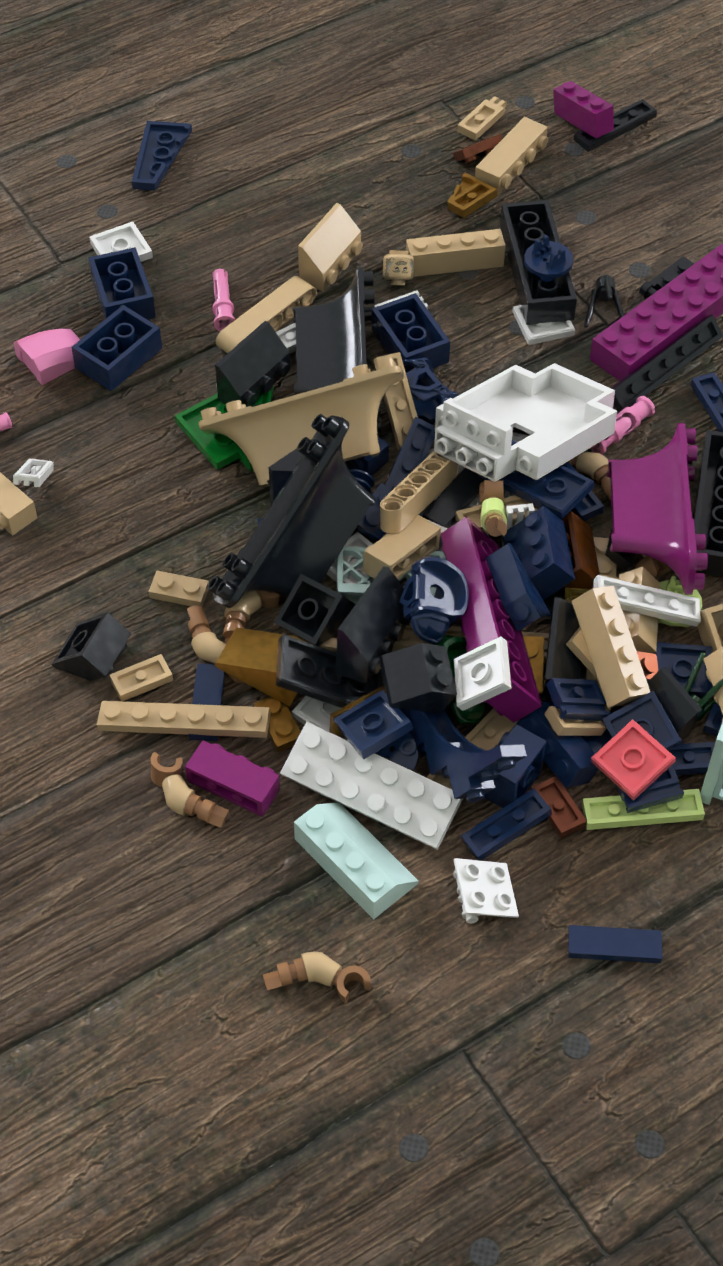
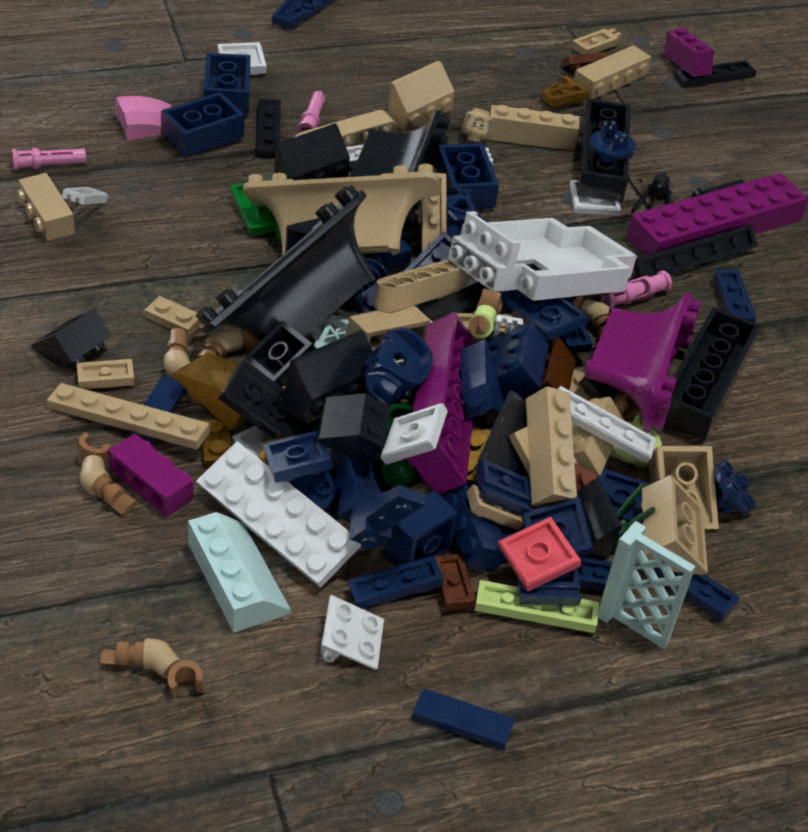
camera: 10 degrees right, 10 degrees down
(183, 329) = (268, 127): none -> black tile

